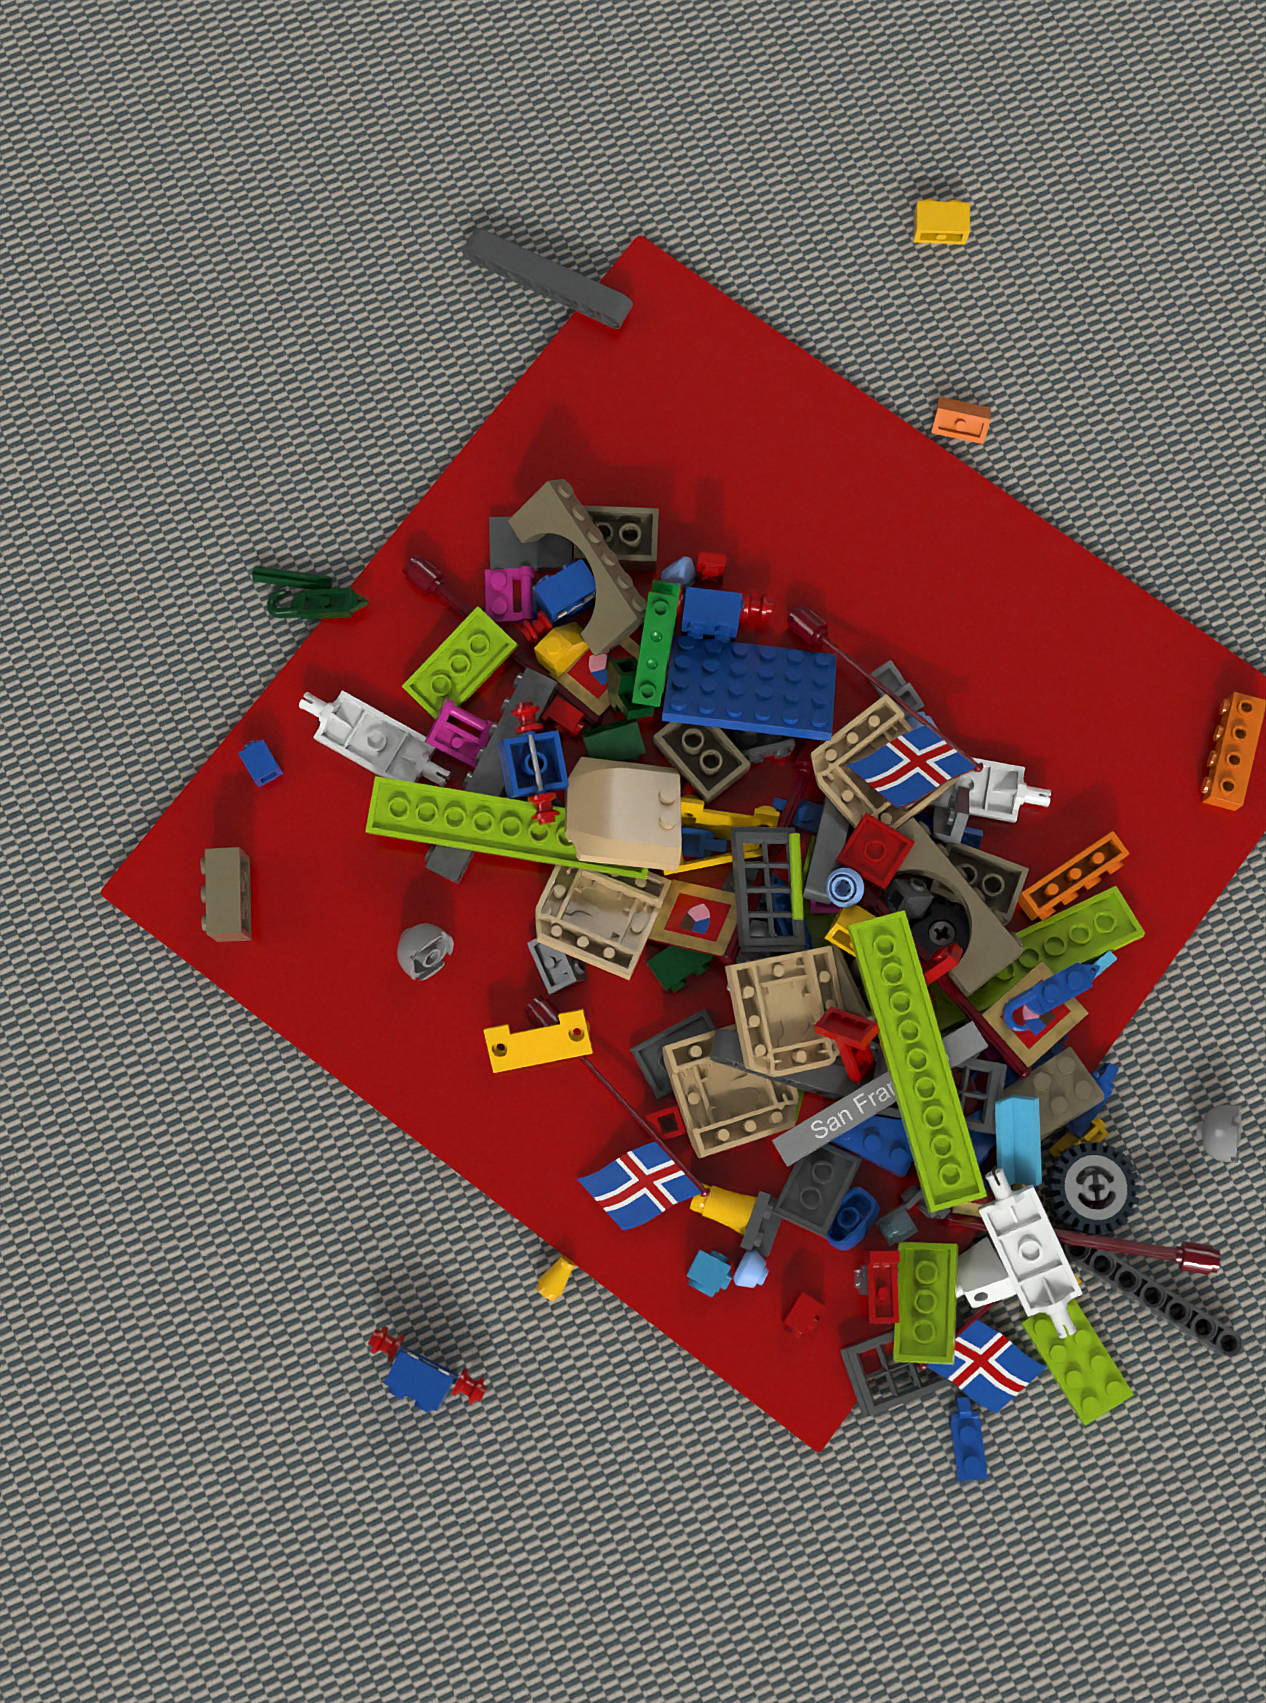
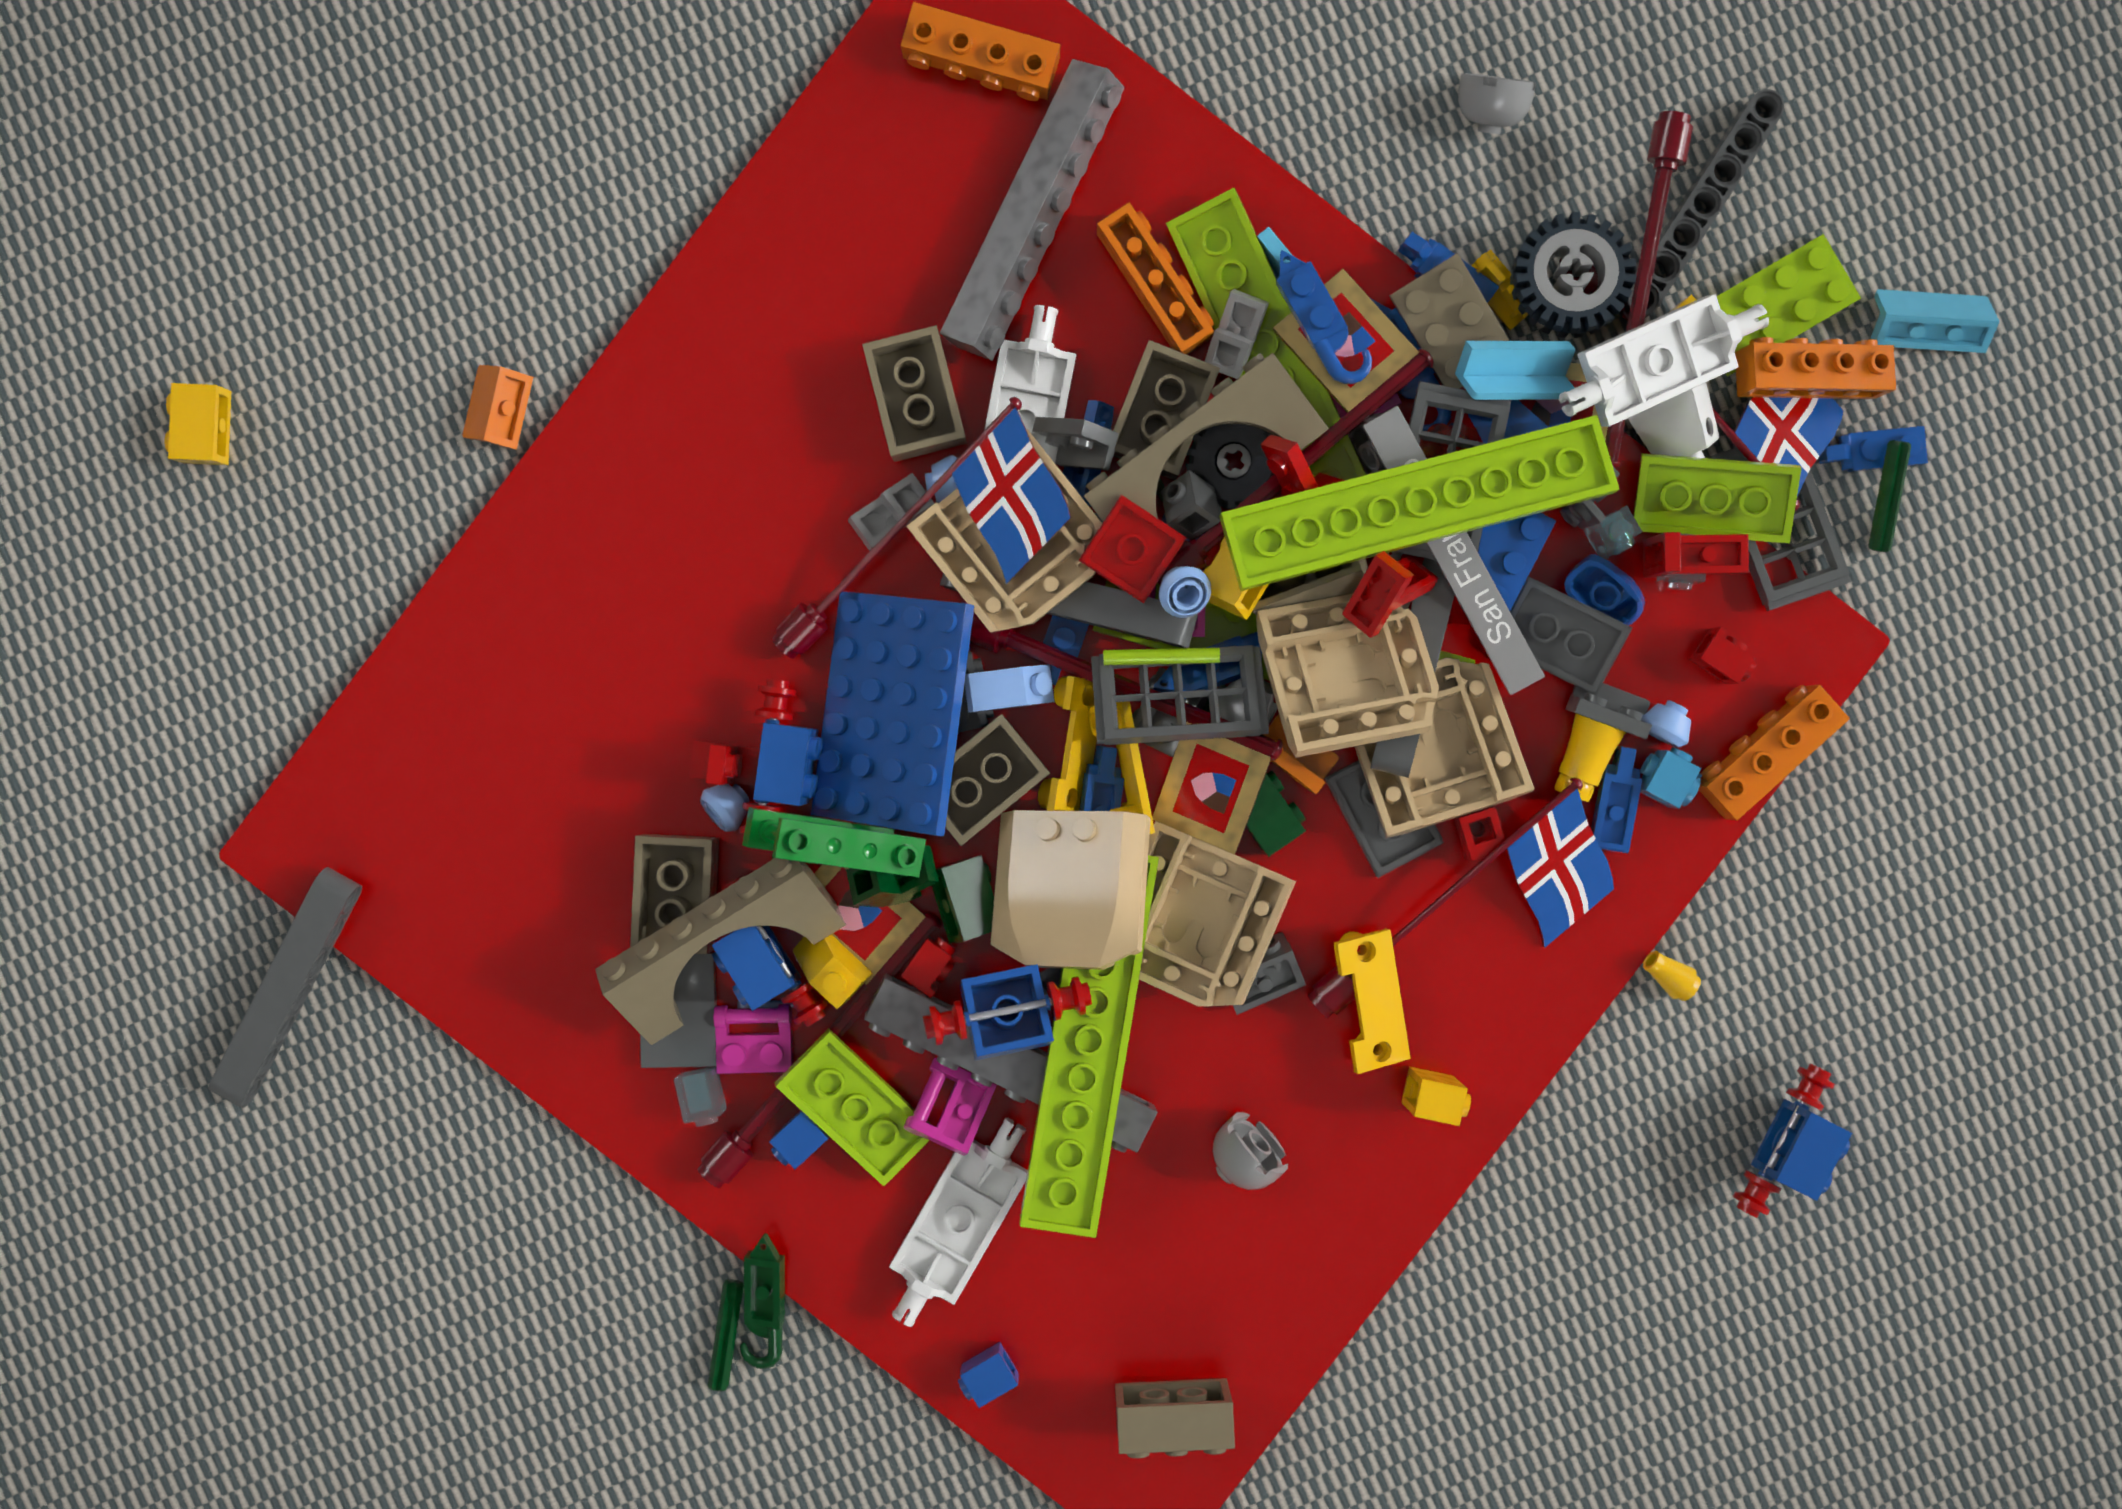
camera: 95 degrees left, 10 degrees up
(435, 625) = (797, 1140): none -> blue brick
(465, 1089) = (1435, 1096): none -> yellow brick
(468, 558) = (700, 1096): none -> clear light blue brick
(688, 1231) = (1617, 802): none -> blue hinge
(714, 993) = (1306, 770): none -> orange panel
(730, 1353) = (1771, 751): none -> orange brick
(769, 771) = (1009, 688): none -> light blue slope
(932, 1448) = (1889, 495): none -> dark green axle
(982, 704) = (914, 393): none -> dark tan brick
(1028, 1385) = (1815, 370): none -> orange brick
(1039, 937) = (1236, 333): none -> light grey slope
(1070, 1485) = (1934, 321): none -> medium azure panel
(1121, 788) = (1032, 209): none -> flat silver brick

